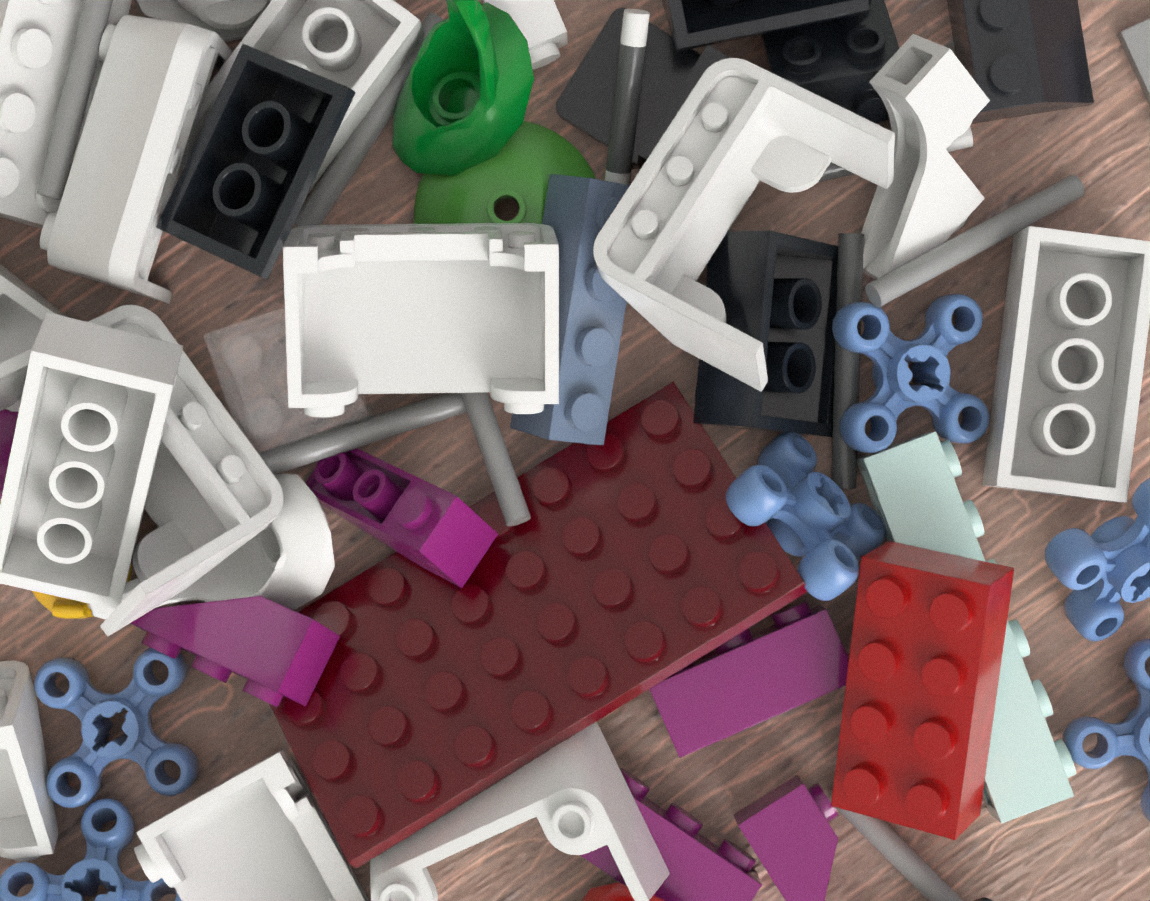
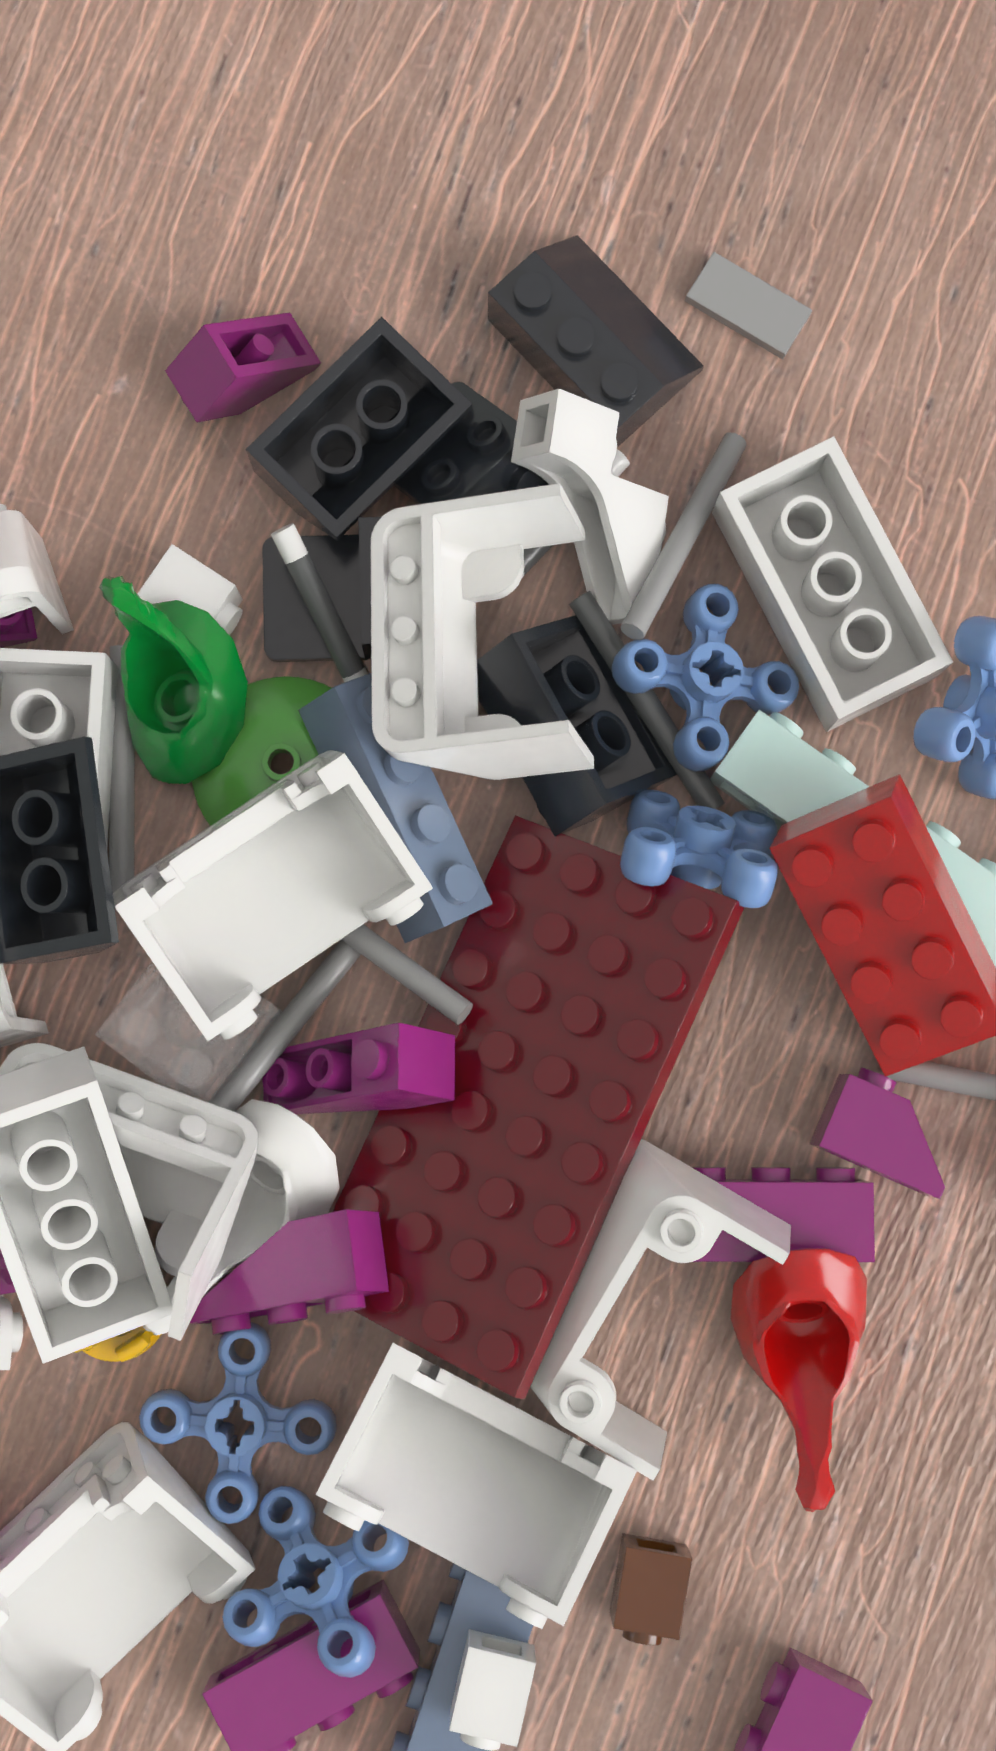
camera: 35 degrees left, 5 degrees down
(753, 678) = (747, 1016): magenta brick -> none

